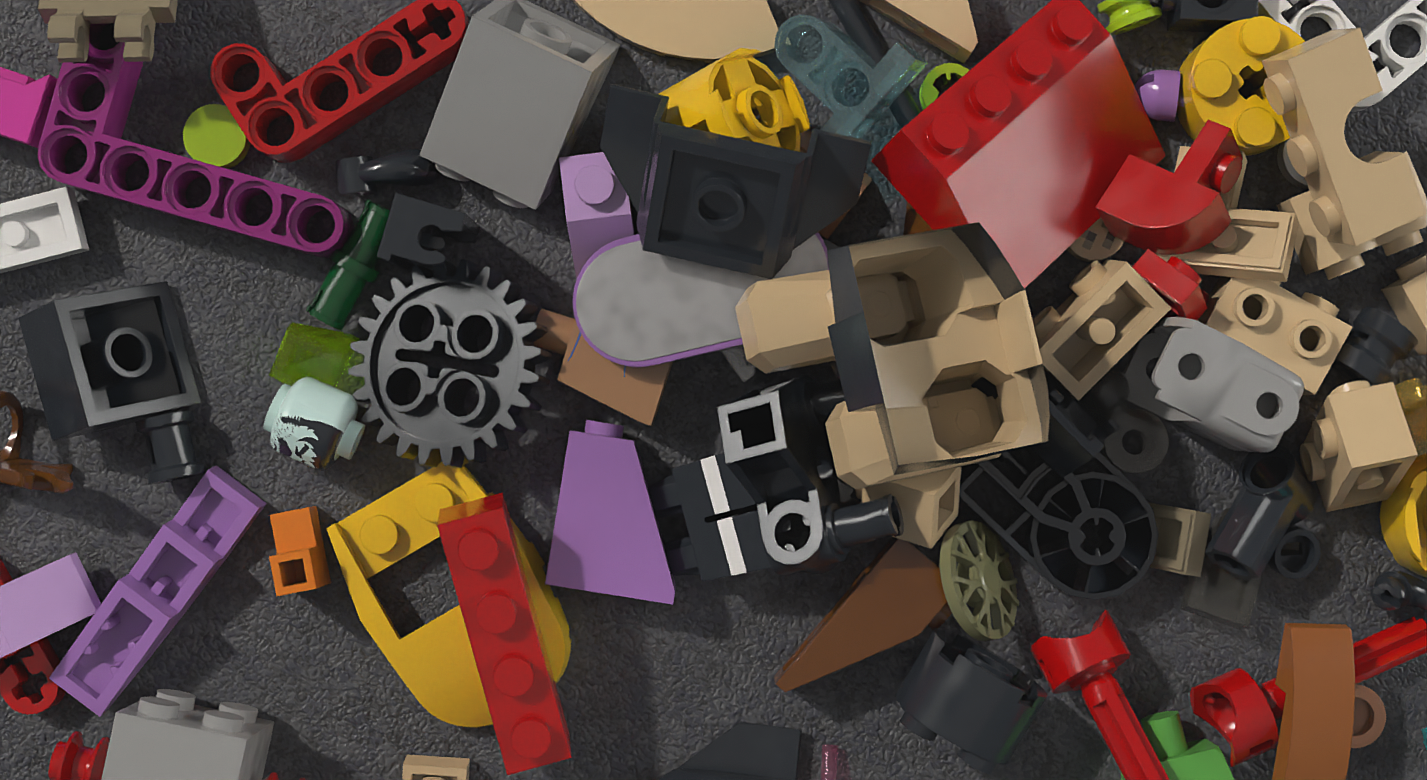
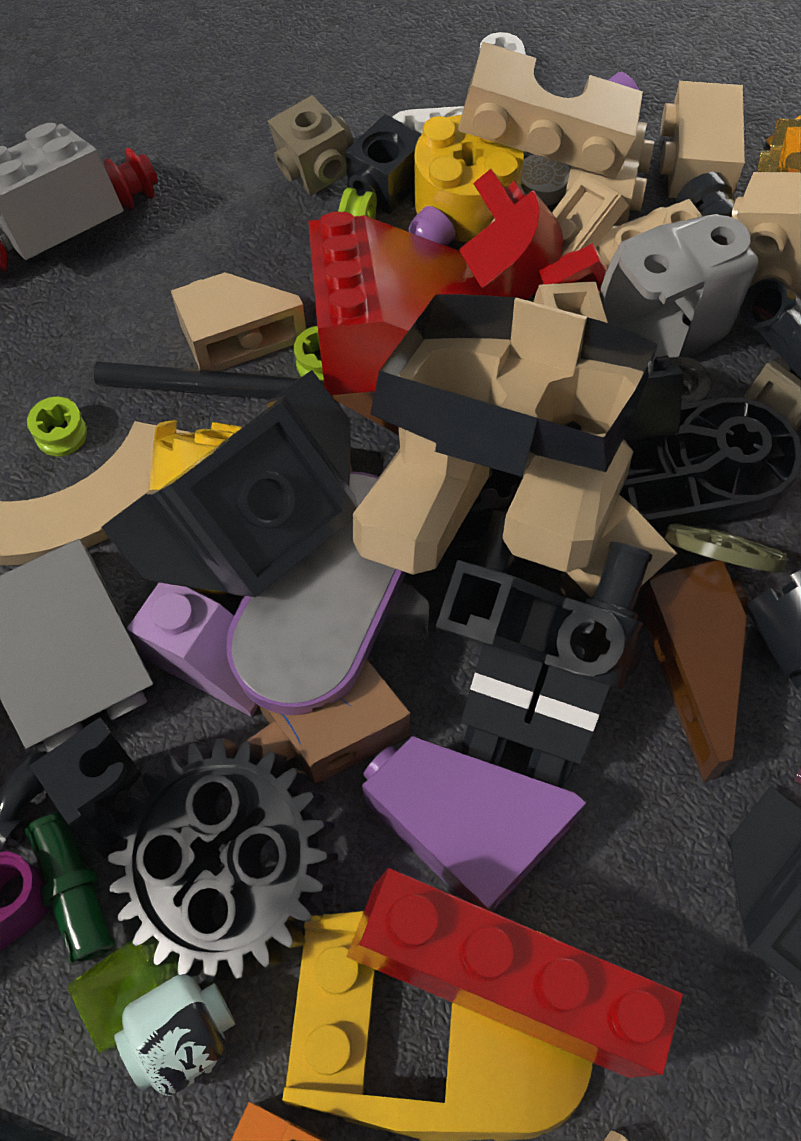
camera: 55 degrees left, 25 degrees down
(839, 60) = (236, 385): clear light blue tile -> none

